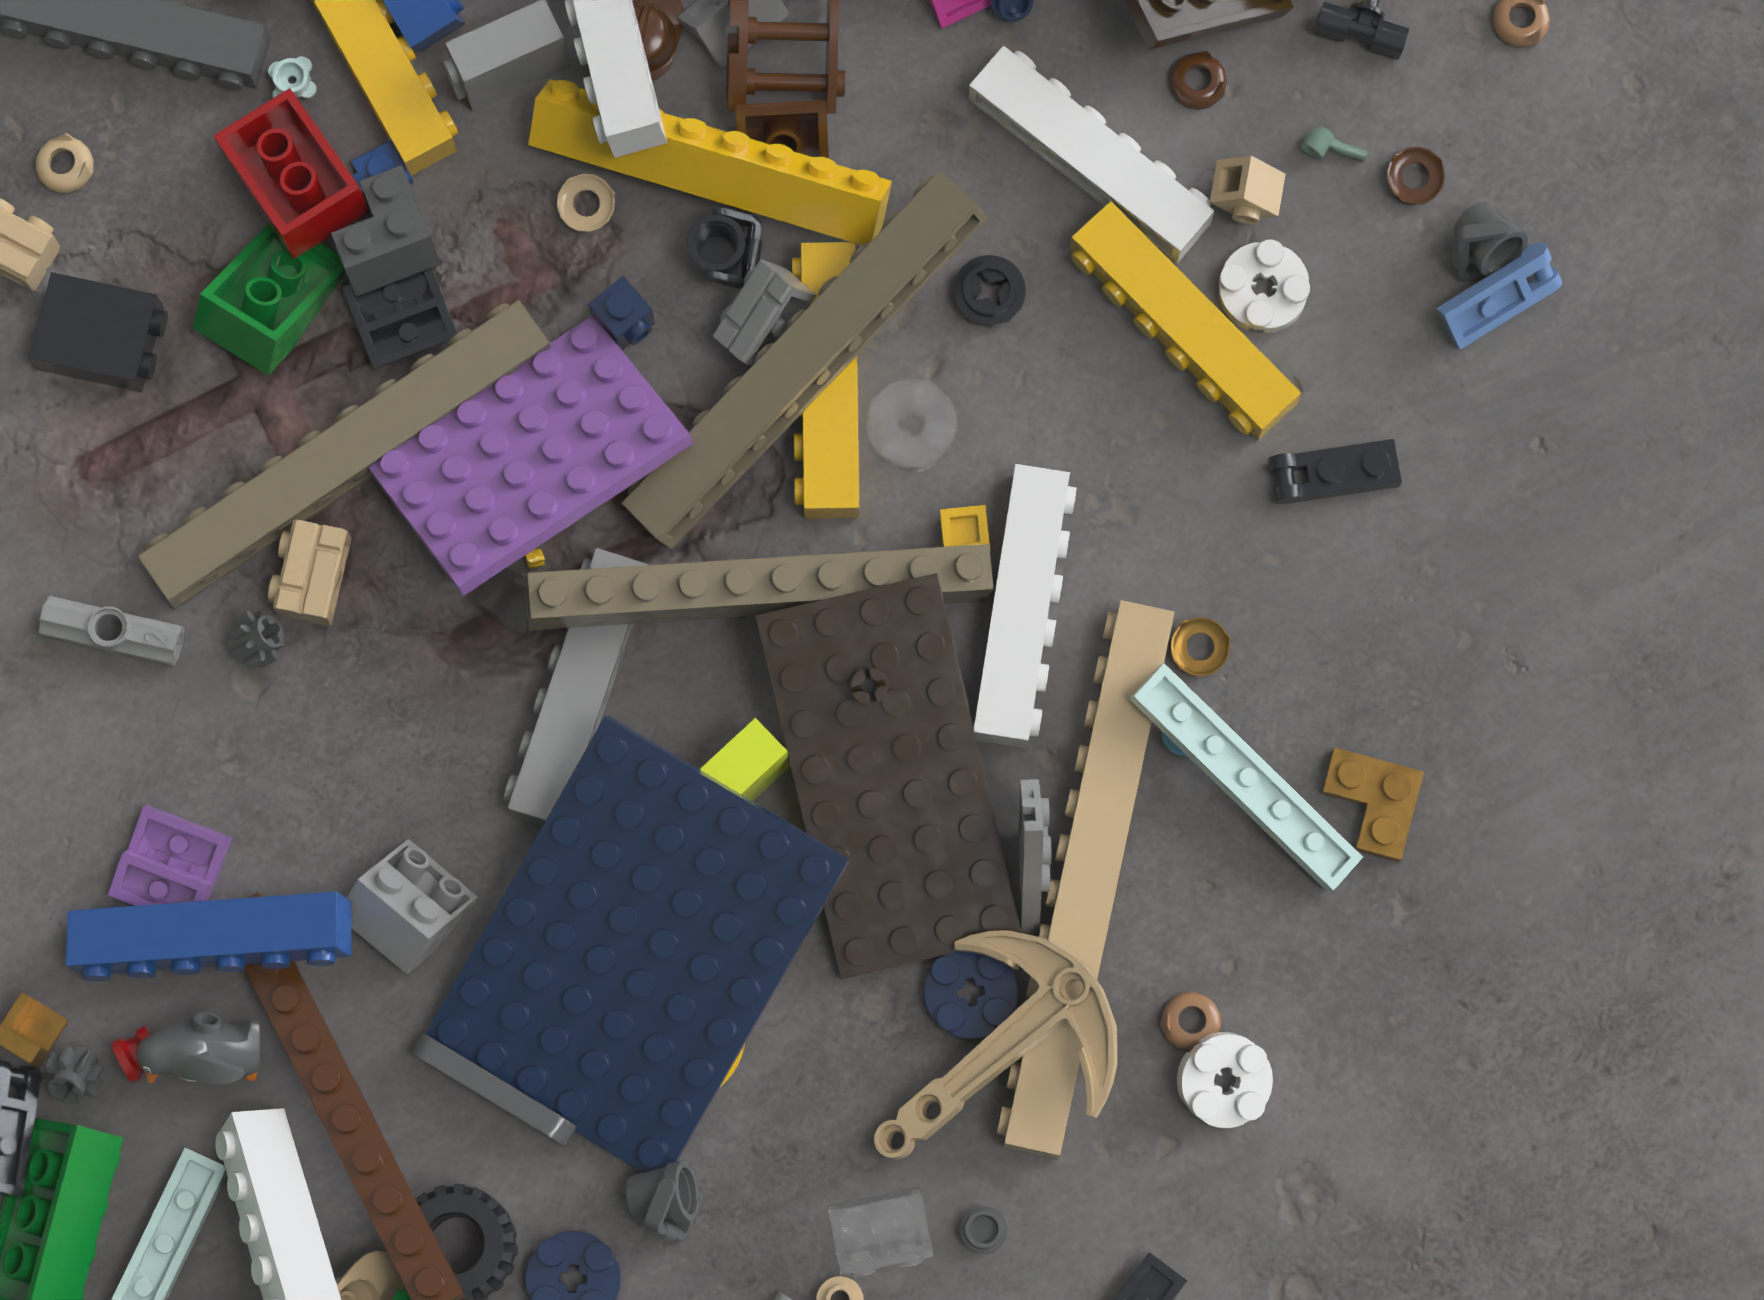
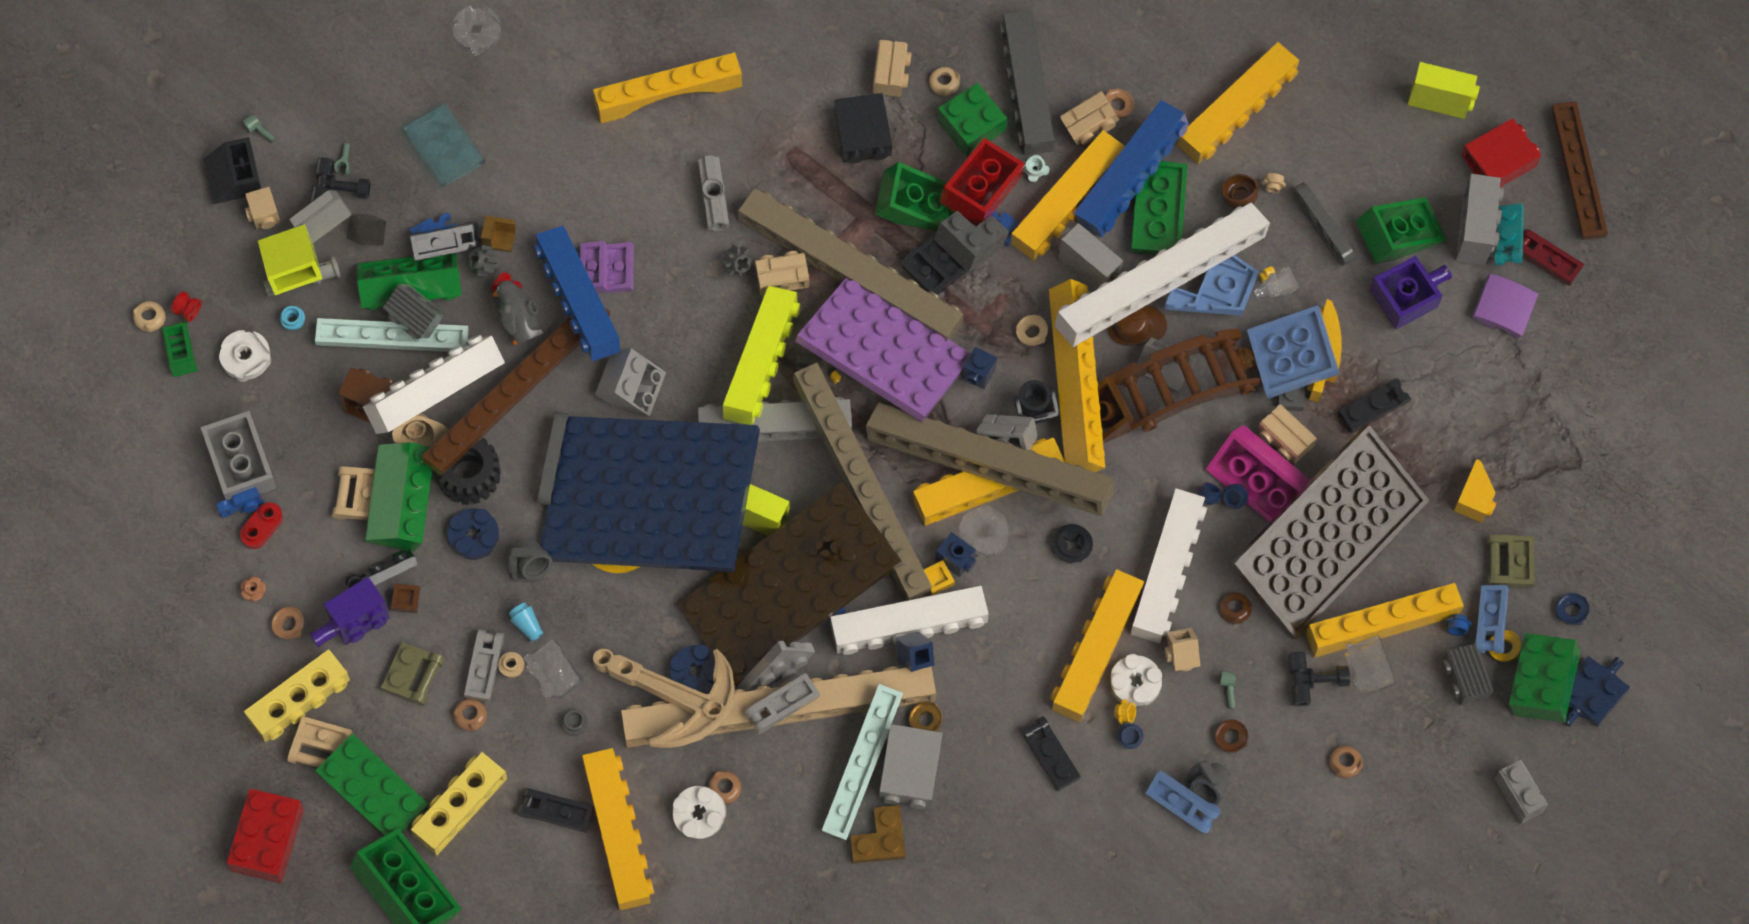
camera: 65 degrees right, 10 degrees down
(127, 1233) = (413, 311): none -> dark grey brick
(161, 145) = (971, 118): none -> green brick
(457, 665) = (760, 356): none -> neon yellow brick
(770, 1246) = (526, 621): none -> medium azure cone
(938, 484) = (956, 555): none -> dark blue brick
(990, 37) = (1210, 492): none -> dark blue plate
(1091, 616) = (914, 651): none -> dark blue brick
(1101, 867) = (782, 703): none -> light grey plate
(1203, 1228) = (617, 830): none -> yellow brick
(1285, 703) = (910, 766): none -> light grey slope
(1313, 324) = (1125, 712): none -> yellow plate
(1355, 333) = (1130, 735): none -> dark blue plate

